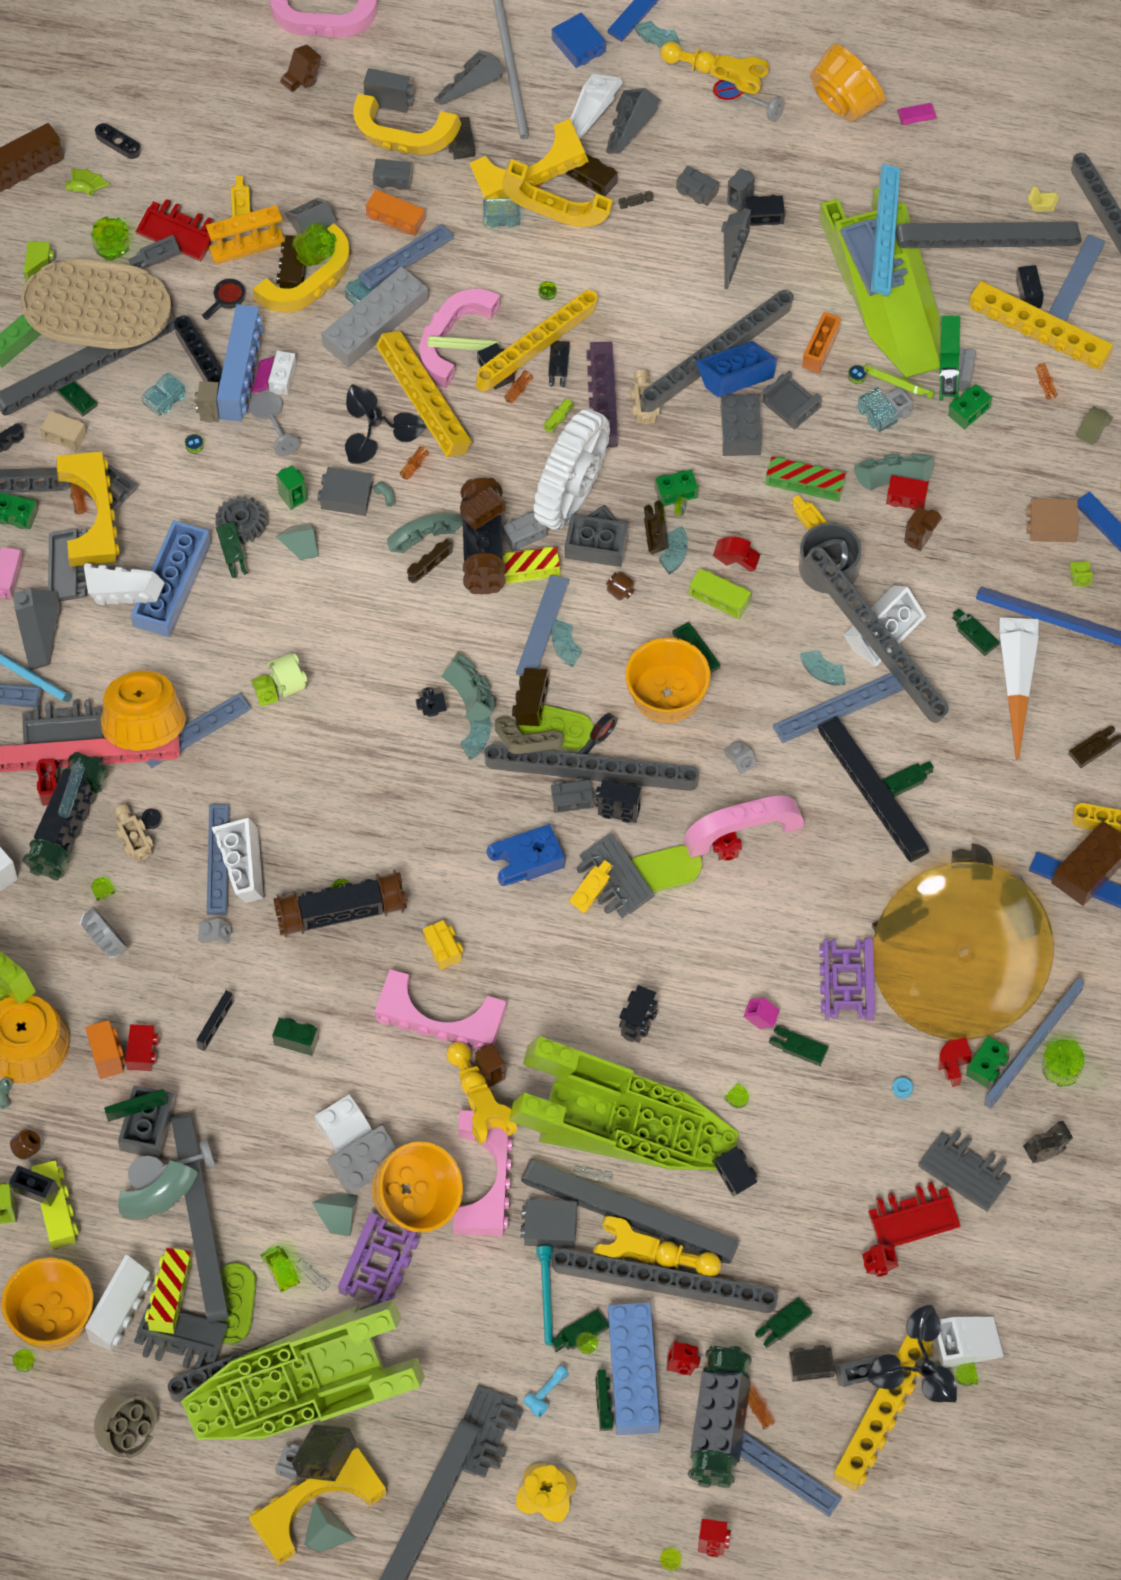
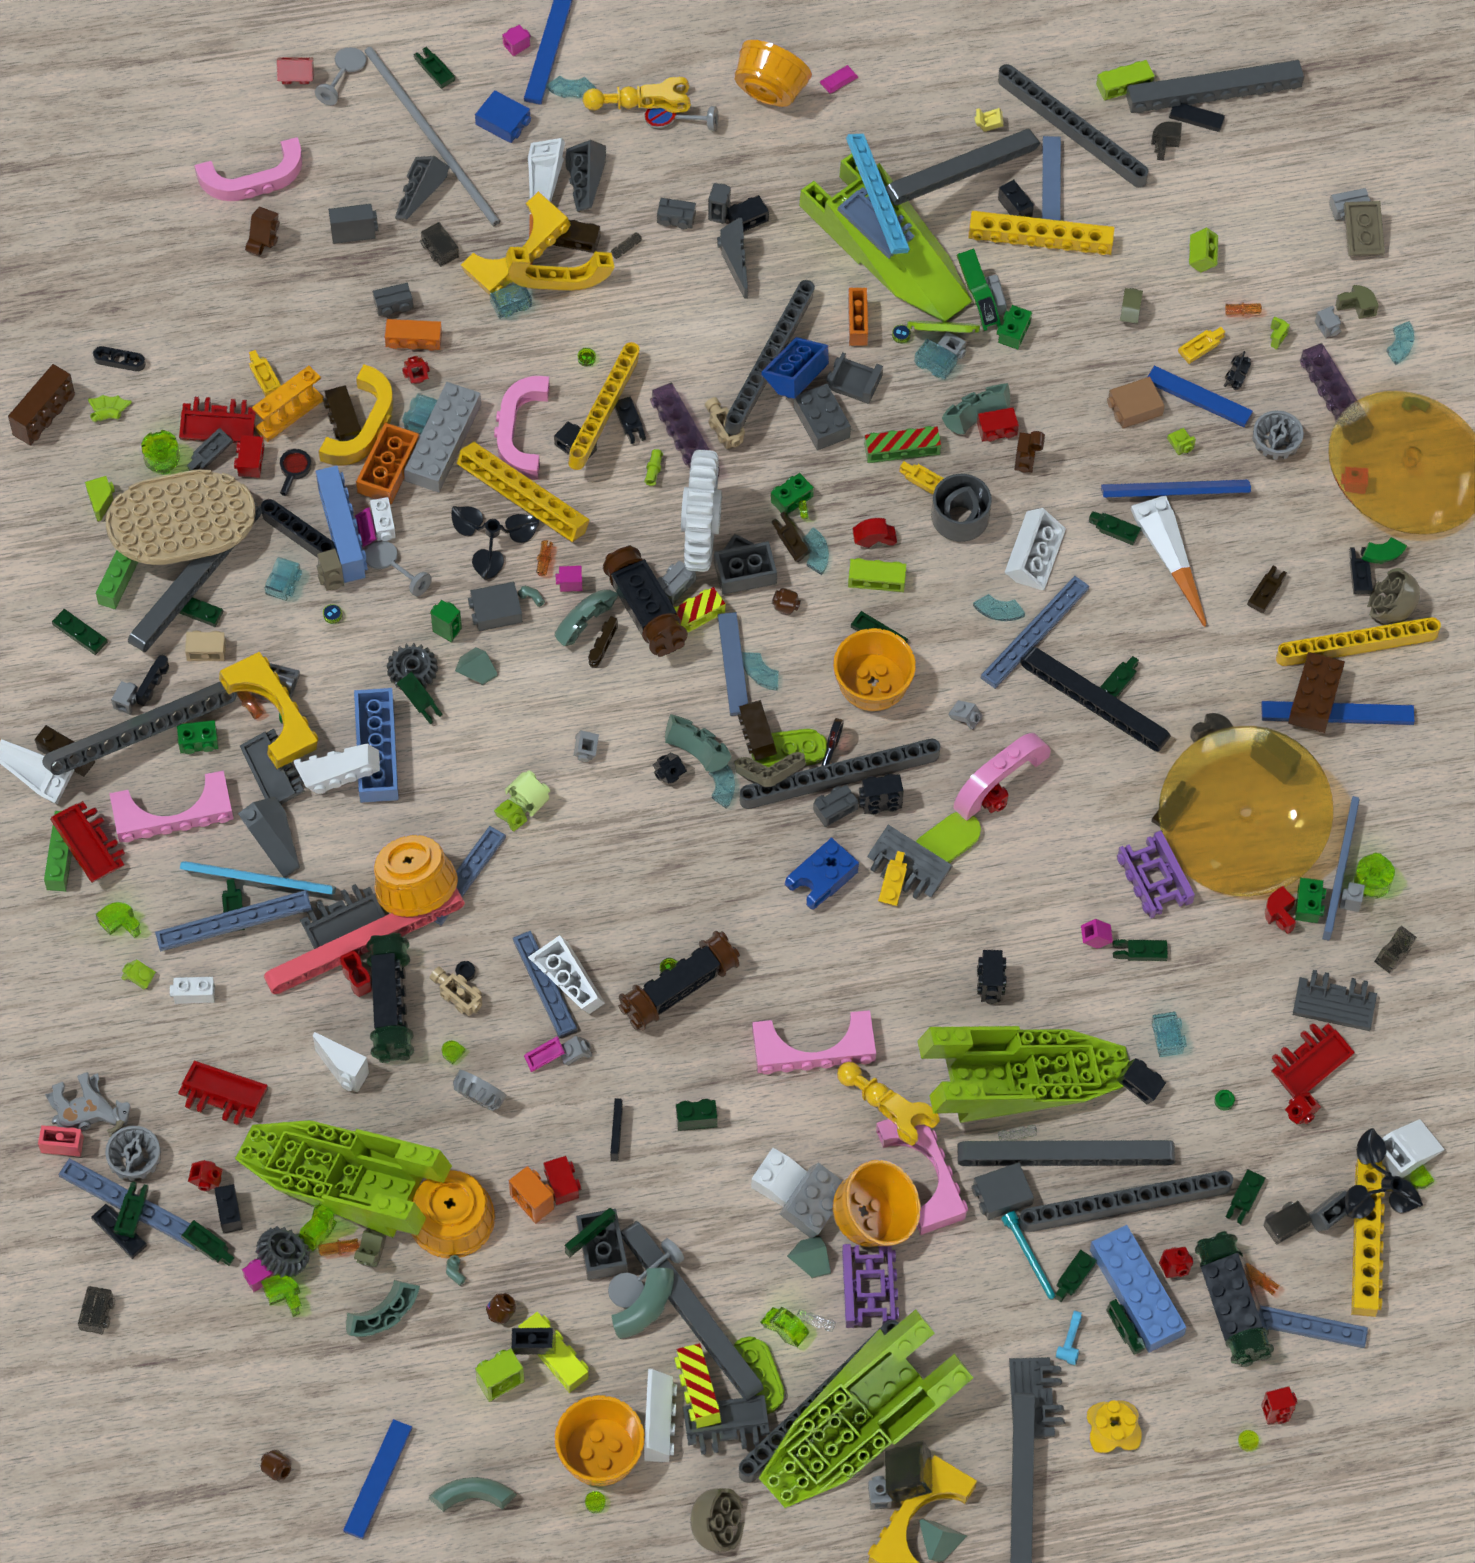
camera: 25 degrees left, 0 degrees up
(71, 790) = (389, 971): clear light blue axle -> none
(183, 923) = (544, 1054): none -> dark pink tile
(189, 271) = (250, 456): none -> red brick
(302, 327) = (386, 463): none -> orange brick
(310, 213) = (338, 365): dark grey slope -> none
(314, 244) = (358, 390): clear neon green brick -> none
(369, 647) = (589, 741): none -> light grey brick
(375, 250) = (420, 374): none -> red brick
(402, 141) = (385, 266): yellow arch -> none
(406, 256) = (444, 371): sand blue tile -> none
(427, 490) = (569, 578): none -> dark pink brick
(442, 944) = (786, 982): yellow brick -> none
(459, 343) = (534, 433): yellowish green axle -> none
(482, 508) = (636, 575): reddish brown brick -> none
(490, 1064) = (884, 1070): reddish brown piece -> none
(518, 387) = (604, 454): clear orange axle -> none
(586, 1342) = (1085, 1282): clear neon green tile -> none
(649, 1250) = (1101, 1179): yellow piece -> none
(737, 1097) = (1109, 1015): clear neon green tile -> none
(784, 1137) = (1168, 1034): none -> clear light blue brick
(810, 1222) = (1224, 1100): none -> green tile
(877, 644) = (1033, 552): dark grey beam -> none
(902, 1088) = (1246, 951): medium azure tile -> none
(1032, 1075) = (1352, 897): none -> light grey brick
(1046, 381) = (1069, 280): clear orange axle -> none

